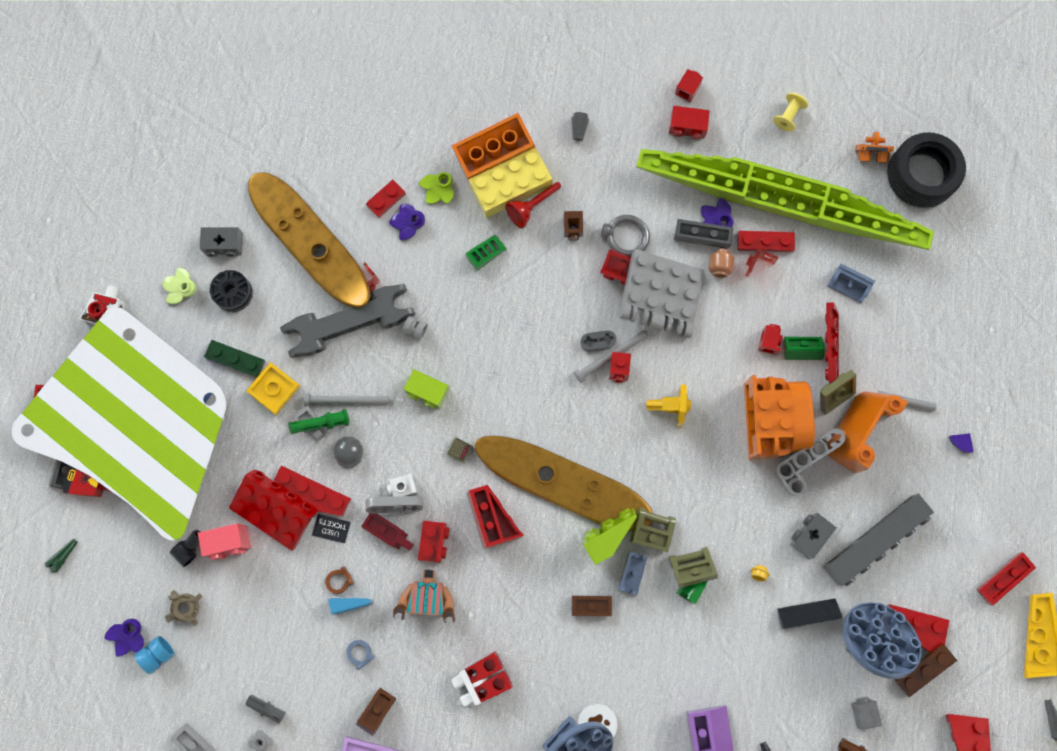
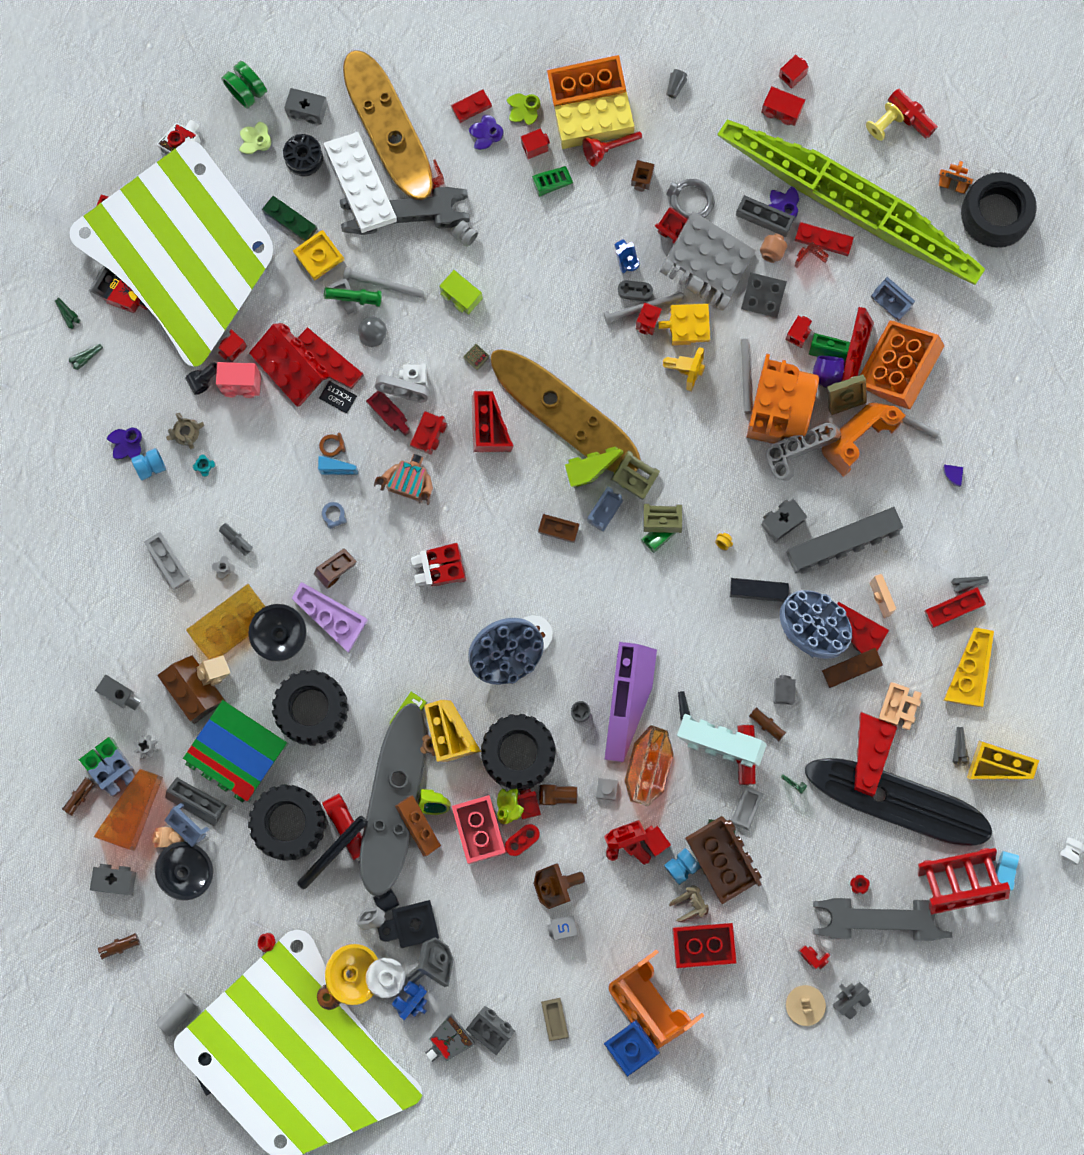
camera: 20 degrees right, 0 degrees up
(31, 516) = (68, 315): none -> dark green piece
(153, 235) = (244, 84): none -> green wheel
(209, 507) = (231, 346): none -> red brick
(209, 633) = (197, 466): none -> teal plate
(296, 305) = (360, 182): none -> white plate
(458, 220) = (535, 143): none -> red brick
(582, 310) = (626, 256): none -> blue hips
(660, 361) = (688, 324): none -> yellow plate
(725, 312) = (763, 294): none -> dark grey hinge
(731, 397) = (746, 375): none -> light grey bar
(814, 374) = (829, 370): none -> dark purple helmet
(815, 96) = (913, 113): none -> red piece
(878, 345) = (901, 363): none -> orange slope
(936, 589) = (882, 595): none -> light nougat plate
(978, 696) = (894, 703): none -> light nougat plate
(1009, 549) = (968, 582): none -> dark grey piece

